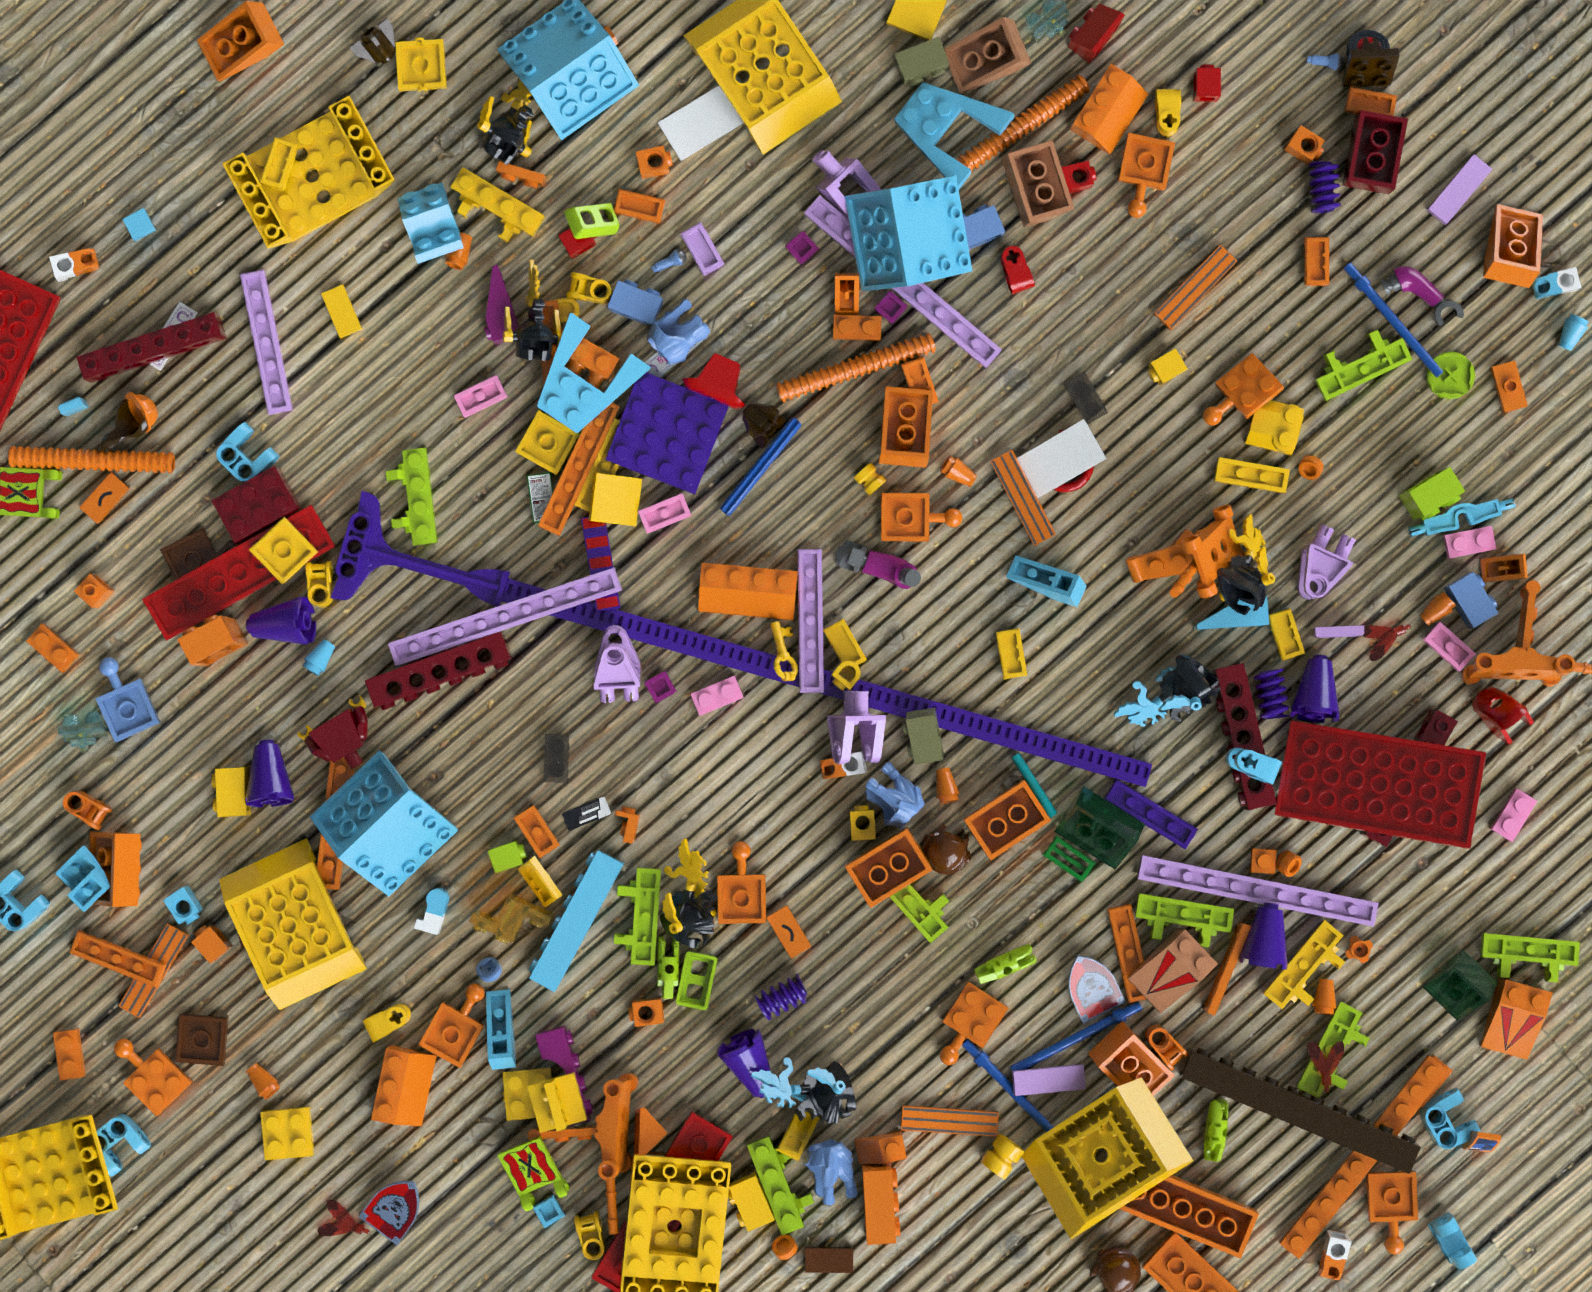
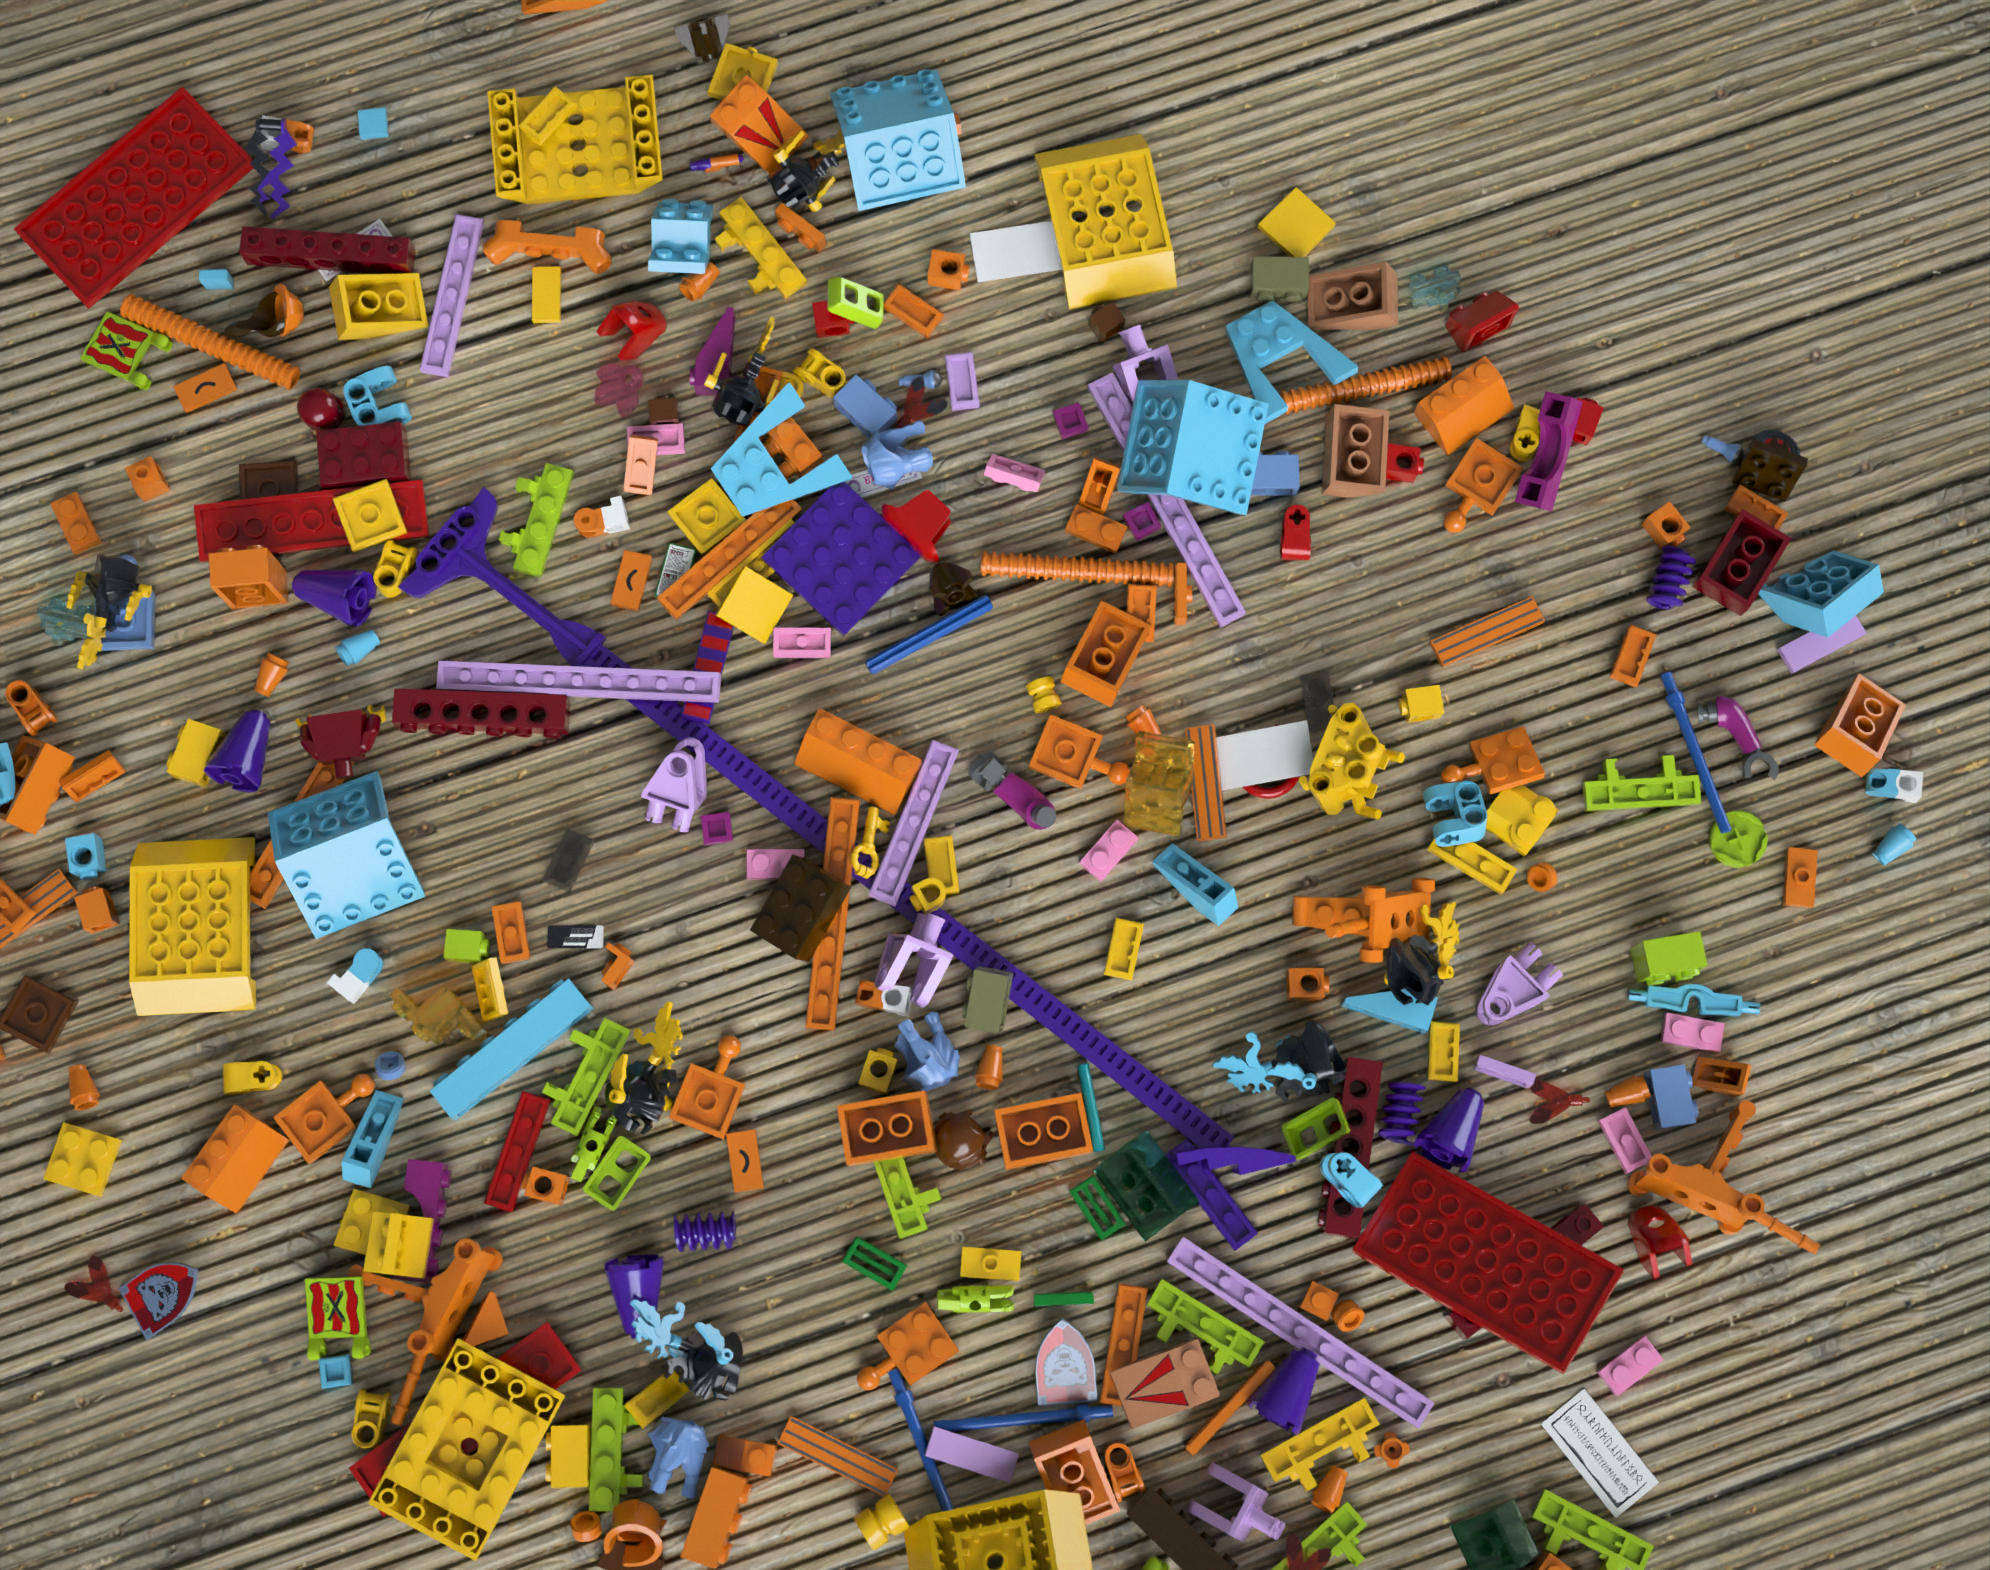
camera: 25 degrees right, 10 degrees down
(78, 304) = (271, 177): none -> piece
(108, 690) = (112, 585): none -> helmet
(160, 842) = (92, 776): none -> orange plate
(204, 480) = (319, 409): none -> dark red helmet
(211, 375) = (377, 305): none -> yellow slope
(261, 706) = (270, 674): none -> orange cone
(356, 258) = (512, 238): none -> orange plate
(426, 310) = (645, 328): none -> red piece
(429, 147) = (714, 164): none -> orange piece
(431, 368) = (615, 389): none -> clear pink plate
(451, 102) = (755, 123): none -> orange slope
(467, 478) = (602, 520): none -> leg
(477, 371) = (663, 410): none -> reddish brown plate
(478, 422) = (640, 464): none -> plate
(509, 517) = (631, 580): none -> orange tile
(613, 994) = (517, 1151): none -> red tile
(673, 288) = (913, 410): none -> clear red piece
(752, 725) = (800, 908): none -> dark brown brick
(775, 309) = (1014, 472): none -> bright pink plate
(777, 717) = (829, 954): none -> orange tile
(797, 153) = (1106, 321): none -> reddish brown plate
(823, 1229) = (635, 1523): none -> orange helmet
(939, 970) = (896, 1276): none -> green tile
(945, 354) = (1182, 594): none -> orange plate
(969, 581) = (1108, 850): none -> bright pink plate
(988, 515) = (1159, 783): none -> clear yellow bracket
(1005, 933) = (990, 1264): none -> yellow plate
(1071, 938) = (1063, 1299): none -> green tile
(1129, 441) = (1347, 763): none -> yellow piece
(1152, 629) = (1293, 984): none -> orange brick
(1165, 779) = (1242, 1159): none -> dark purple slope
(1191, 103) = (1557, 426): none -> magenta arch
(1209, 725) = (1314, 1118): none -> lime piece
(1240, 437) = (1452, 796): none -> medium azure piece
(1274, 1042) = (1250, 1514): none -> lavender piece
(1448, 150) = (1824, 592): none -> medium azure wedge
(1514, 888) = (1599, 1453): none -> white sticker

